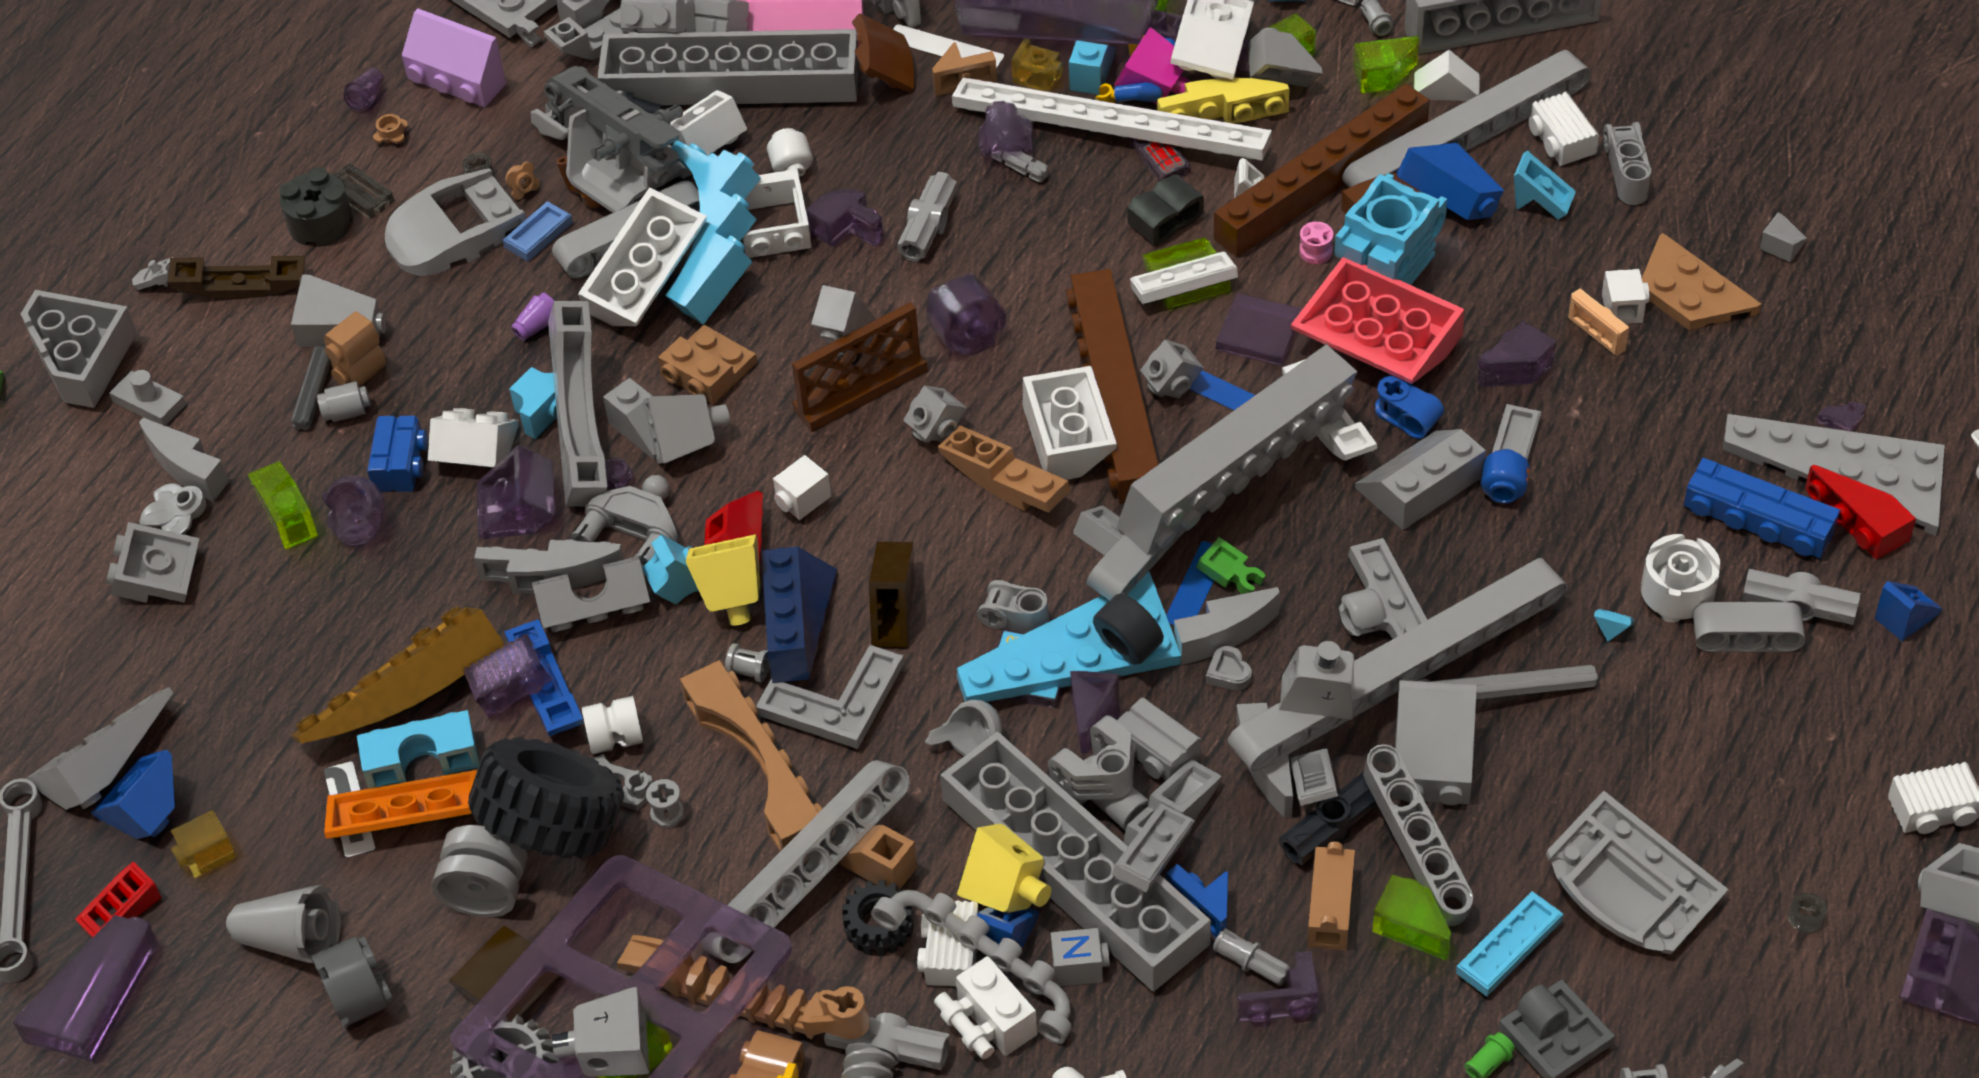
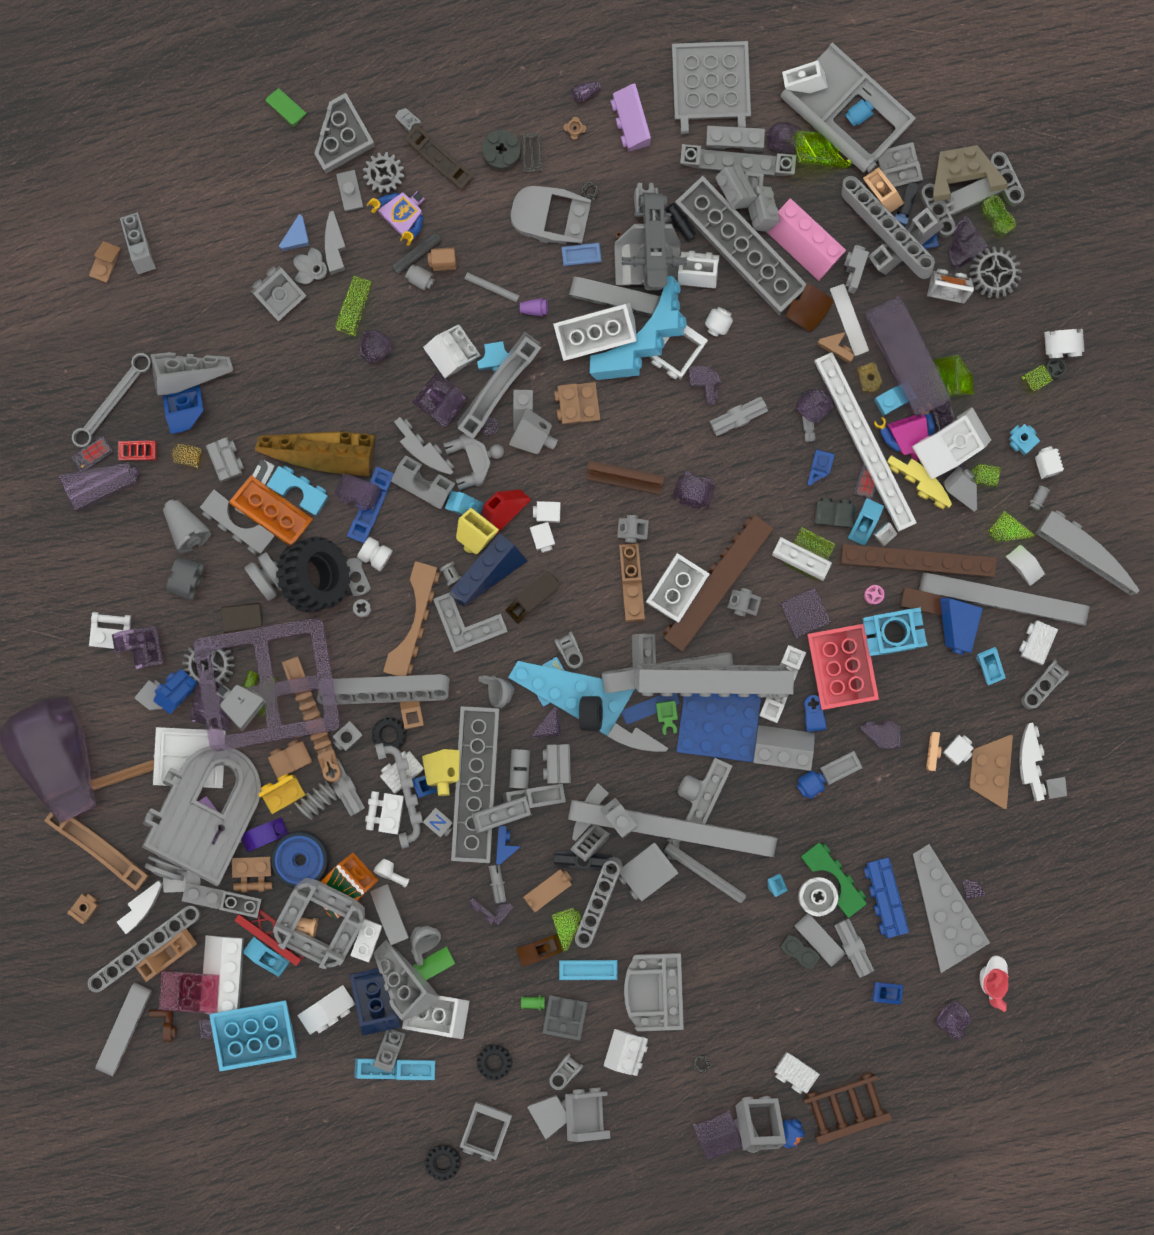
camera: 45 degrees right, 35 degrees up
(48, 957) = (92, 454): none -> tile
(120, 490) = (296, 236): none -> medium blue slope
(176, 343) = (388, 165): none -> light grey gear
(242, 361) = (401, 213): none -> torso
(267, 803) = (224, 459): none -> light grey brick
(324, 306) = (456, 223): light grey slope -> none
(396, 453) = (416, 328): blue brick -> none
(406, 858) = (218, 508): none -> light grey arch
(455, 345) = (492, 287): none -> light grey bar
(516, 175) = (599, 219): medium nougat plate -> none
(819, 956) = (356, 736): none -> light grey brick
(825, 522) = (542, 537): none -> white brick
(839, 314) = (636, 454): light grey brick -> none
(1086, 185) = (821, 465): none -> blue slope
(1110, 771) = (505, 759): light grey piece -> none
(1211, 178) = (866, 521): none -> medium azure slope
(1220, 391) = (760, 634): blue sticker -> none
(1229, 670) = (619, 758): light grey tile -> none
(1302, 520) = (719, 726): none -> blue plate
(1412, 982) = (539, 950): none -> reddish brown slope
(1627, 541) = (849, 898): none -> green arch
(1692, 989) = (626, 1052): none -> white brick
(1711, 235) = (1030, 753): none -> white slope
(1740, 659) = (804, 955): none -> pearl dark grey brick
(1866, 513) = (921, 943): red slope -> none

